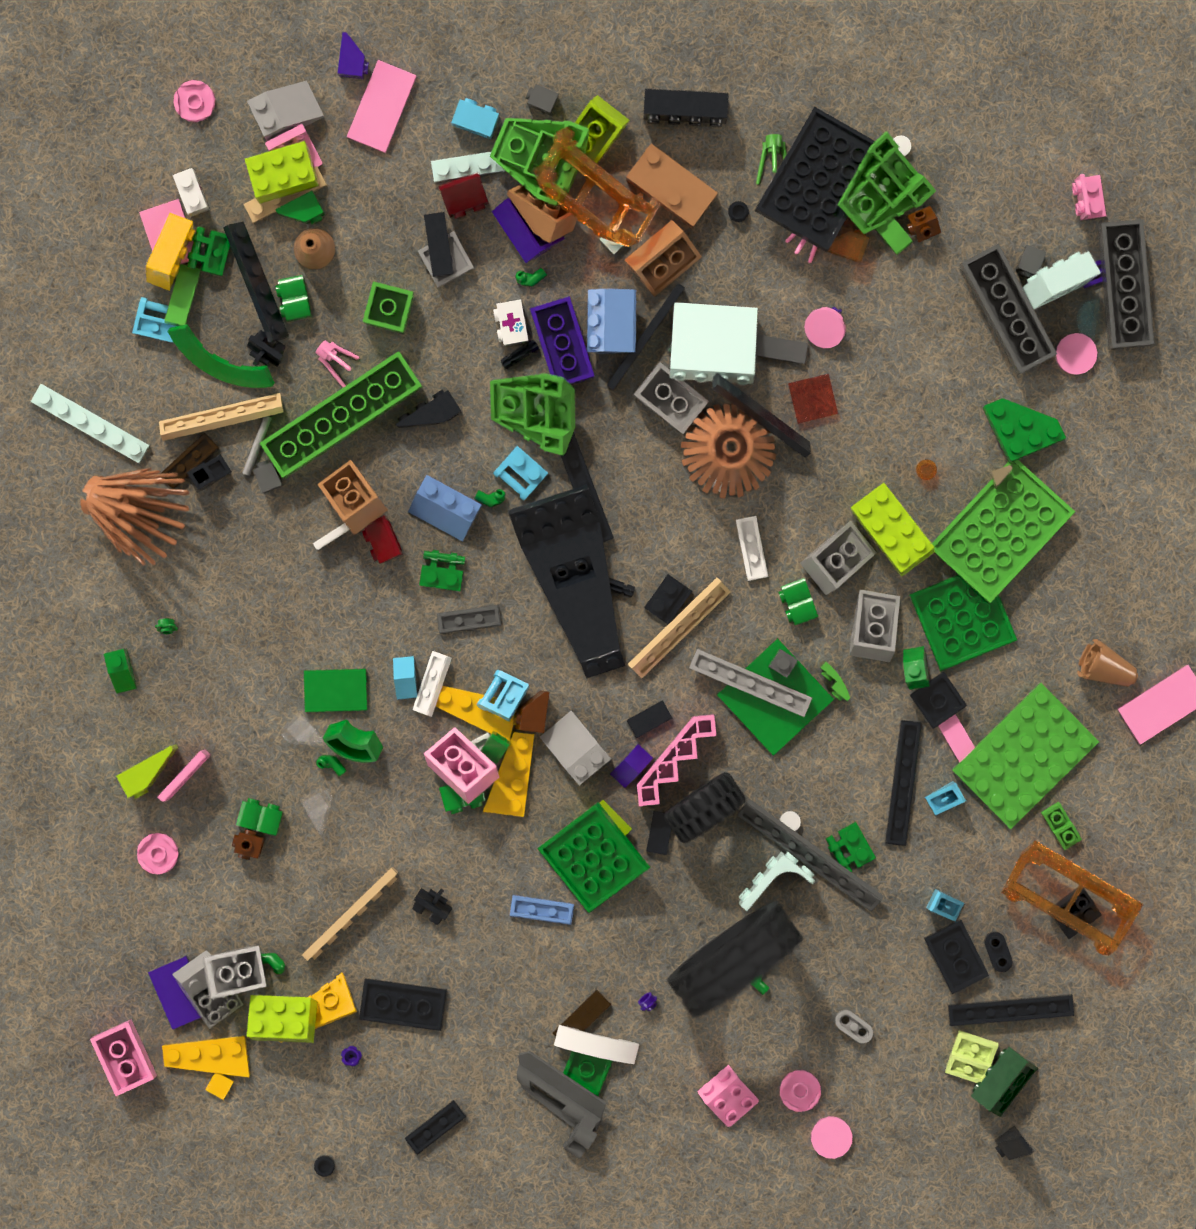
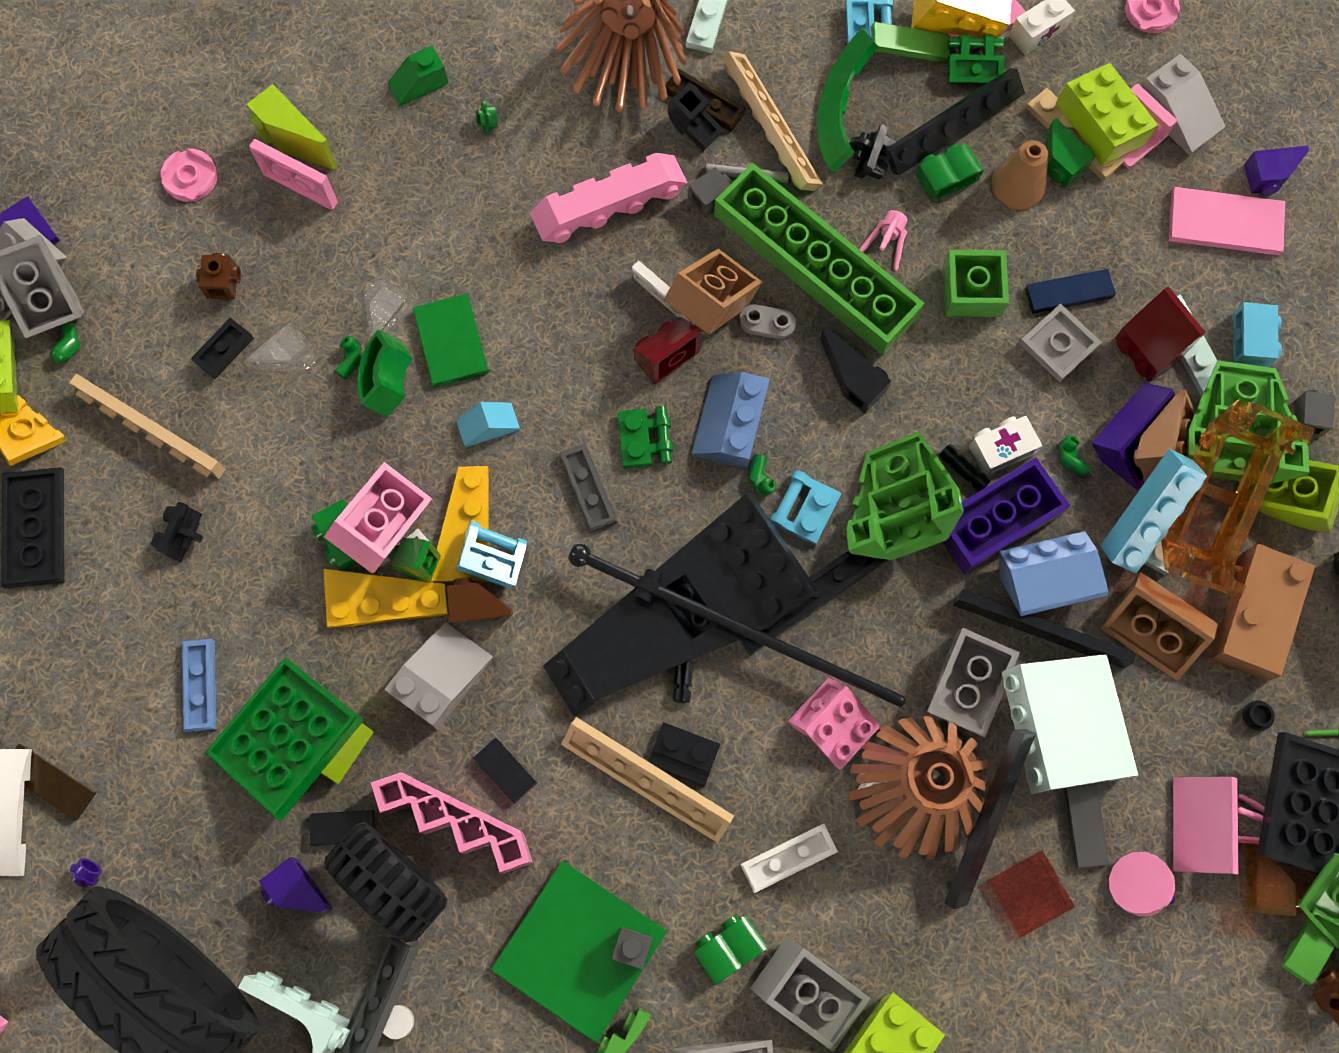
camera: 75 degrees right, 15 degrees down
(254, 543) = (596, 201): none -> bright pink brick
(260, 817) = (258, 283): green brick -> none
(303, 852) = (222, 348): none -> black plate
(377, 462) = (767, 322): none -> light grey plate
(407, 238) = (1070, 291): none -> dark blue tile
(432, 683) = (487, 458): white tile -> none
(438, 244) = (1078, 325): black tile -> none
(554, 595) = (649, 587): none -> black bar
(588, 243) = (1153, 511): none -> medium azure brick
(631, 766) = (432, 761): dark purple slope -> none
(672, 494) = (835, 722): none -> bright pink bracket
(692, 870) = (293, 888): none -> dark purple slope
(750, 682) = (591, 907): light grey plate -> none
(799, 274) = (1205, 825): none -> bright pink tile

